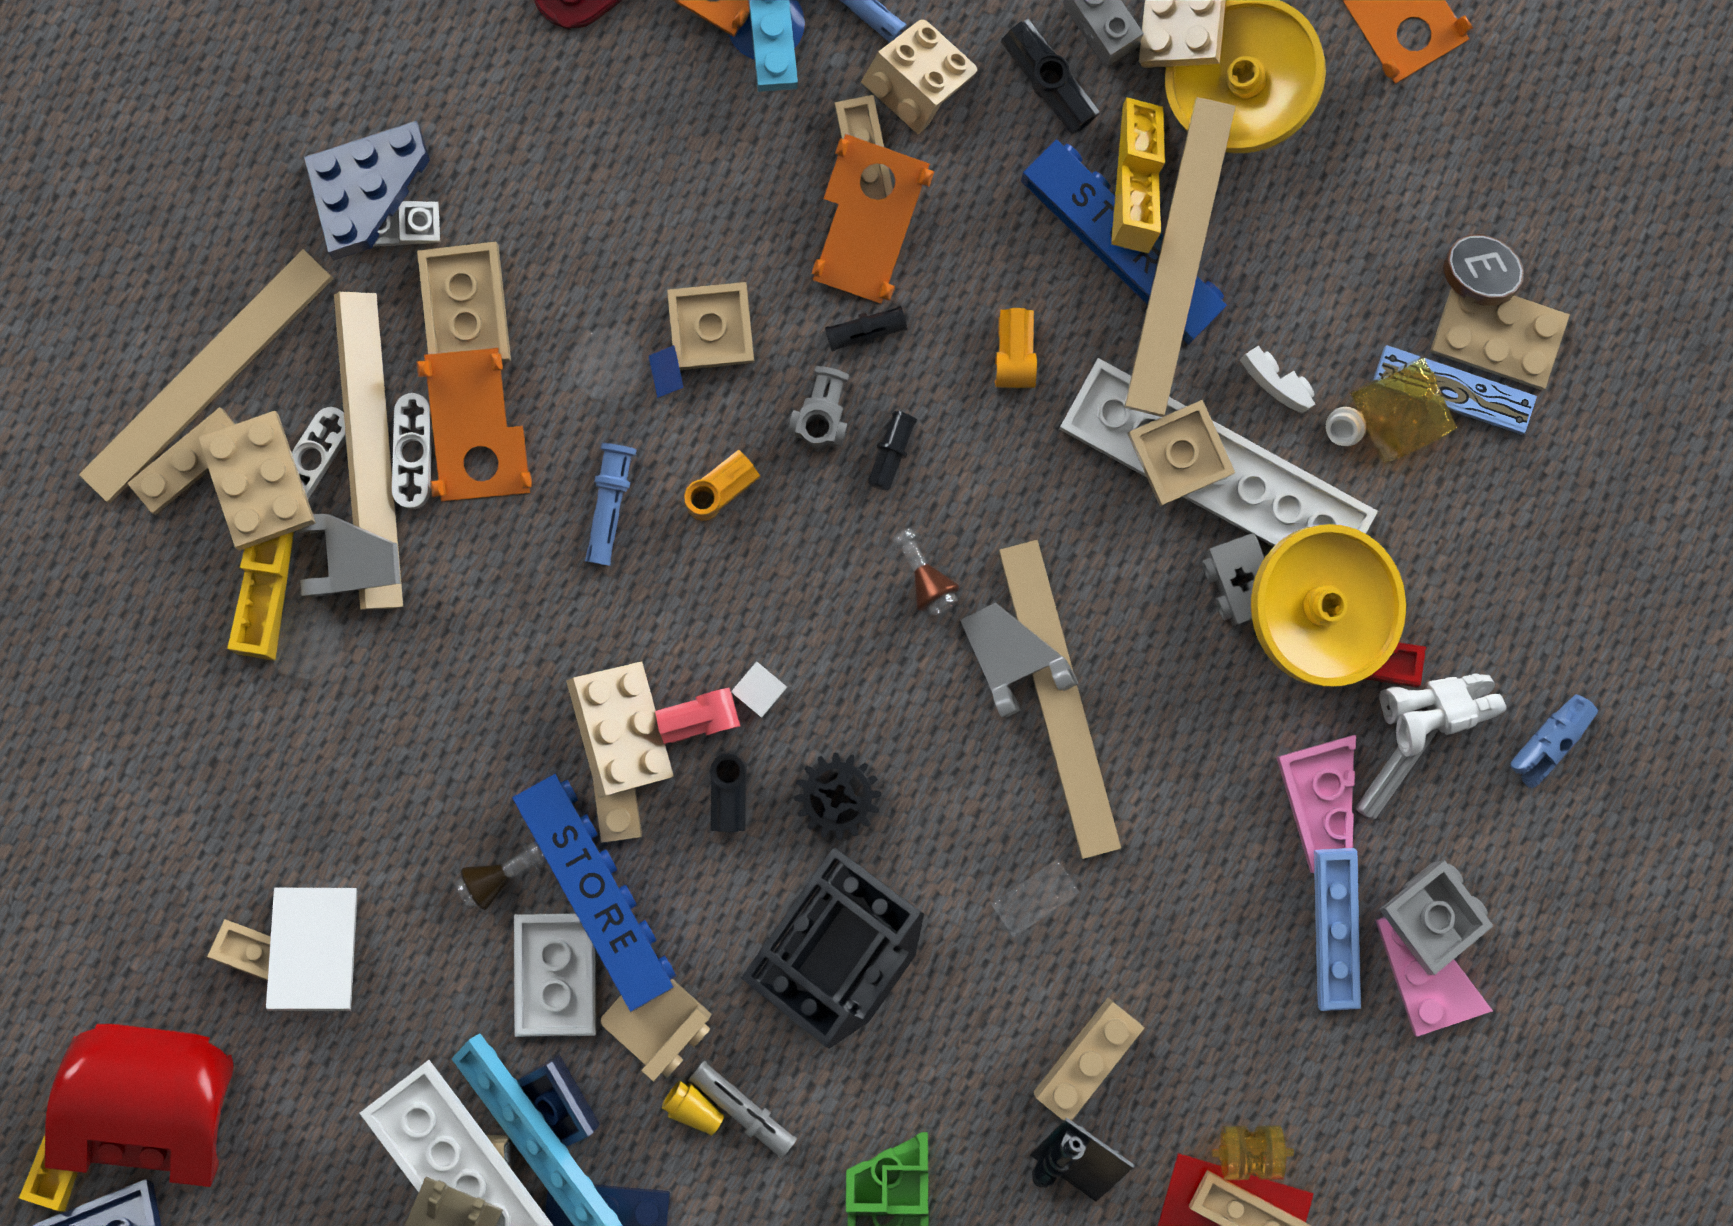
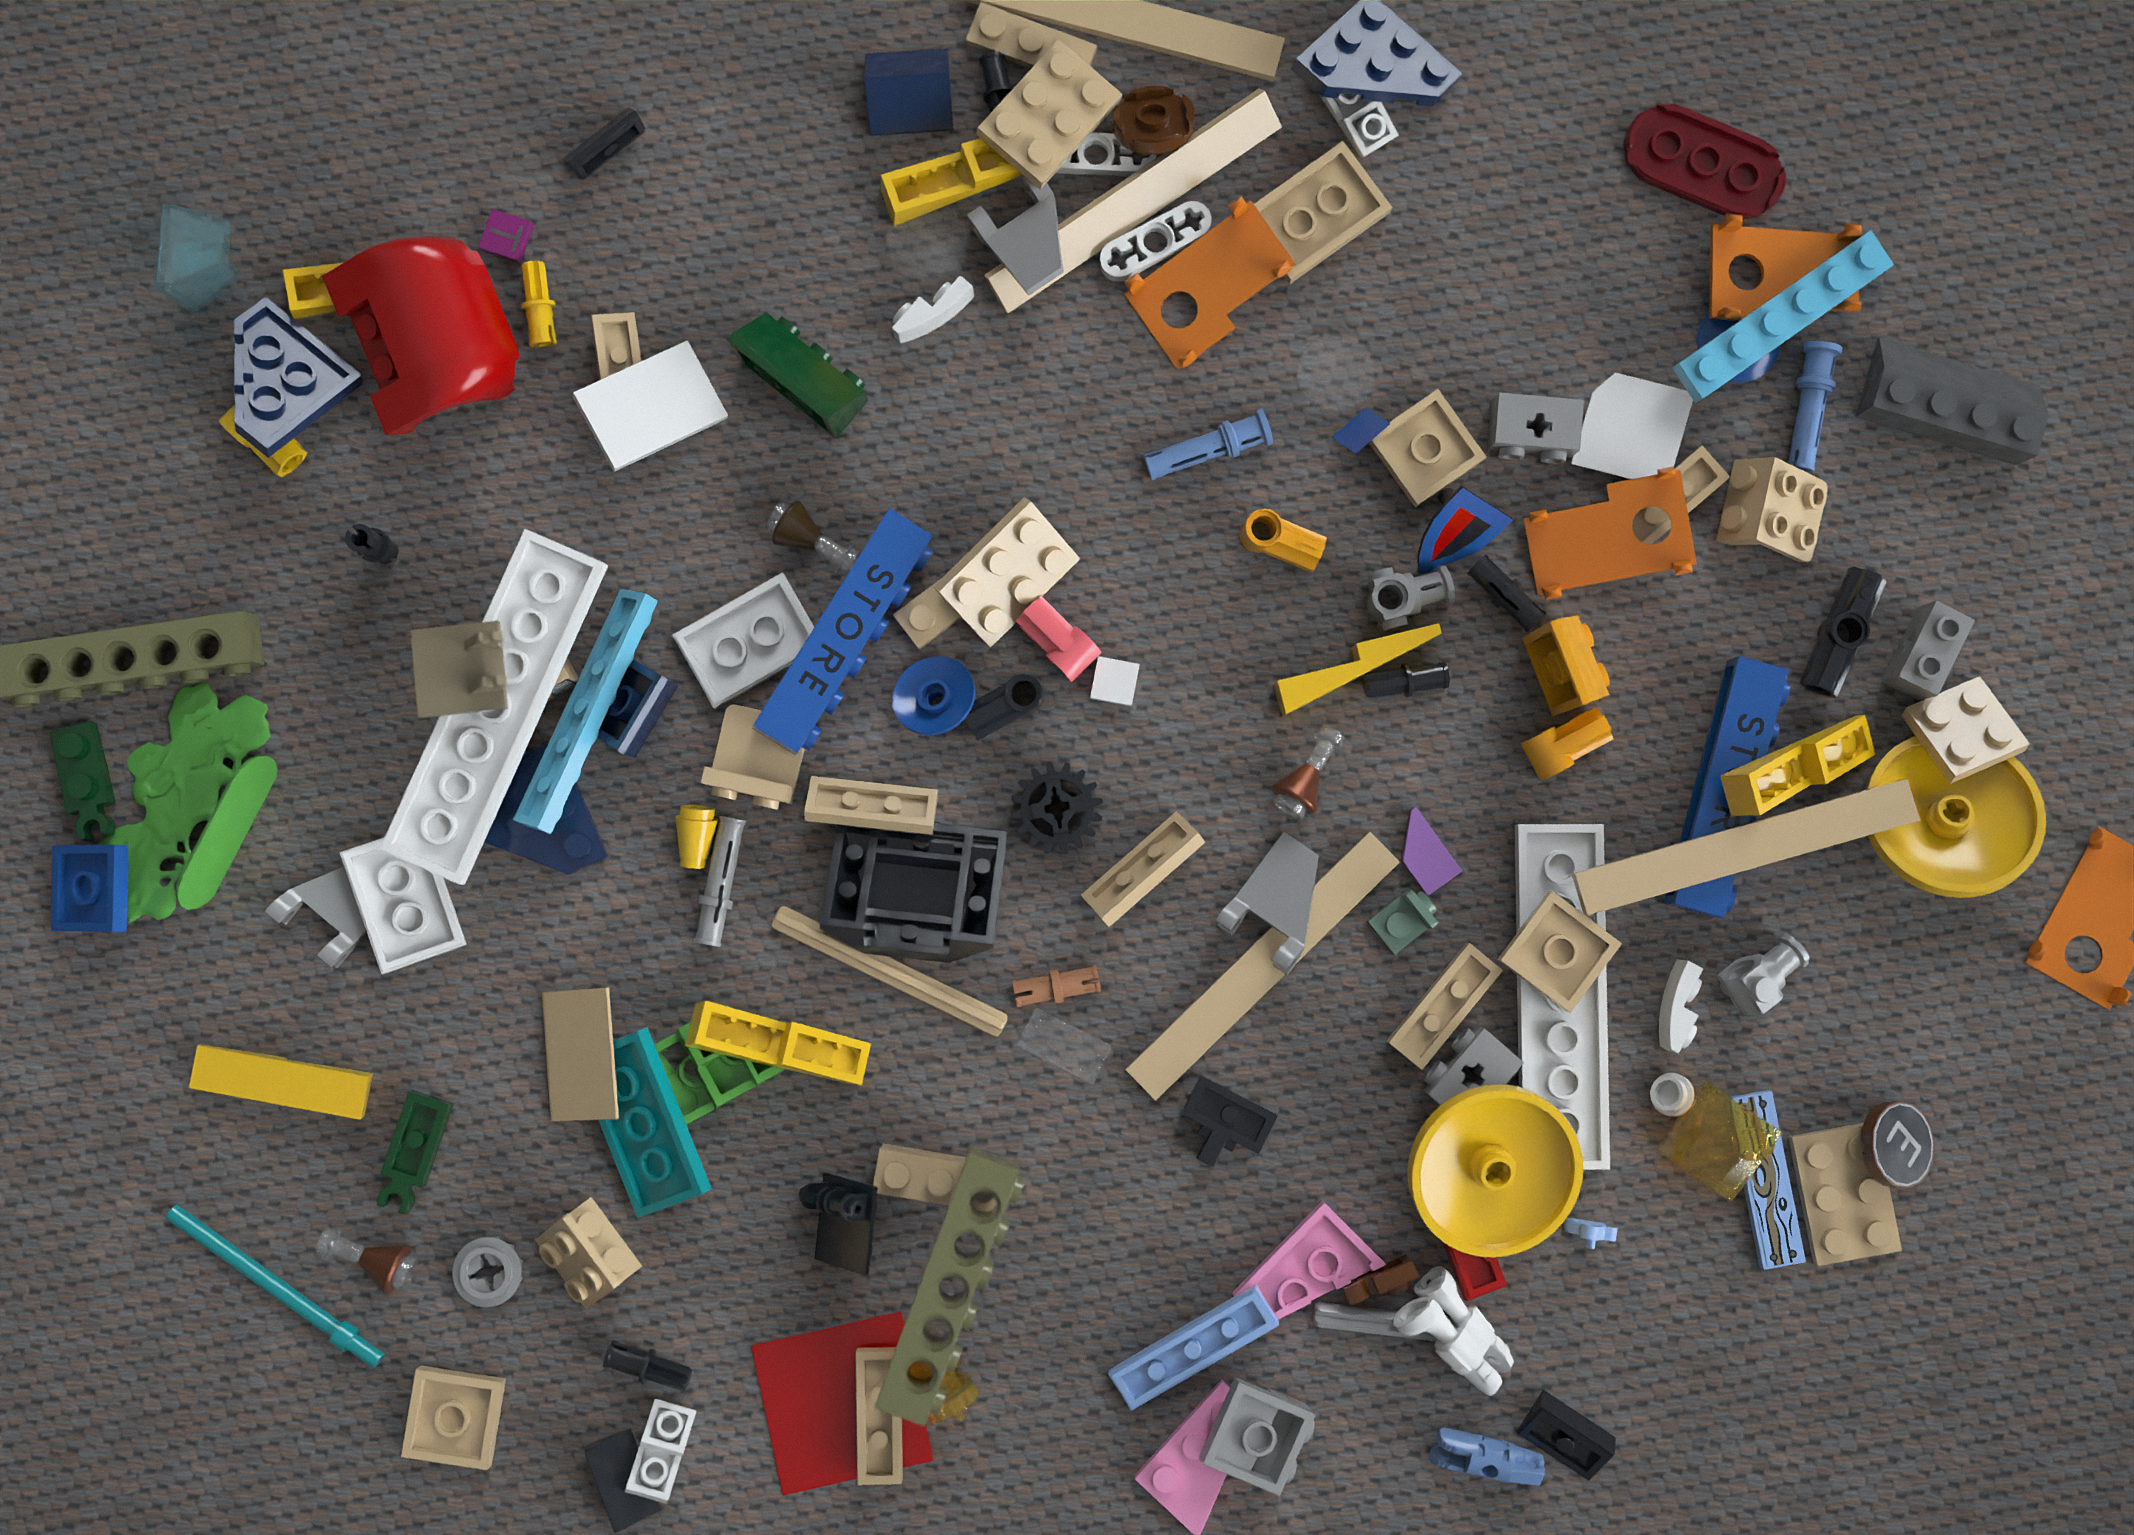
camera: 60 degrees right, 0 degrees up
(65, 864) = (605, 143): none -> black slope
(97, 992) = (506, 236): none -> magenta tile
(168, 585) = (908, 92): none -> dark blue slope
(172, 997) = (537, 305): none -> yellow axle
(200, 507) = (995, 78): none -> black axle
(310, 396) = (1153, 120): none -> reddish brown tile
(354, 807) = (800, 372): none -> dark green slope
(366, 682) = (921, 318): none -> white slope
(673, 851) = (923, 683): none -> blue dish
(745, 206) = (1556, 417): none -> light grey brick
(749, 948) = (871, 805): none -> tan plate
(788, 149) = (1633, 427): none -> white sticker
(792, 338) = (1459, 529): none -> shield
(852, 540) = (1368, 655): none -> yellow slope
(898, 1007) = (892, 973): none -> tan axle
(903, 1135) = (777, 1043): none -> yellow slope
(926, 753) = (1143, 868): none -> tan plate
(953, 313) = (1566, 664): none -> light orange slope
(983, 877) = (1056, 986): none -> nougat pin
(1044, 514) = (1426, 855): none -> medium lavender tile
(1086, 563) = (1403, 920): none -> sand green bracket
(1168, 799) = (1226, 1120): none -> black hinge
(1173, 569) = (1444, 1005): none -> tan plate
(1243, 1189) = (901, 1391): none -> olive brick
(1291, 306) = (1757, 979): none -> light grey connector
(1369, 737) = (1391, 1278): none -> reddish brown plate
(1418, 554) = (1590, 1230): none -> light blue piece
(1571, 665) = (1567, 1435): none -> black slope

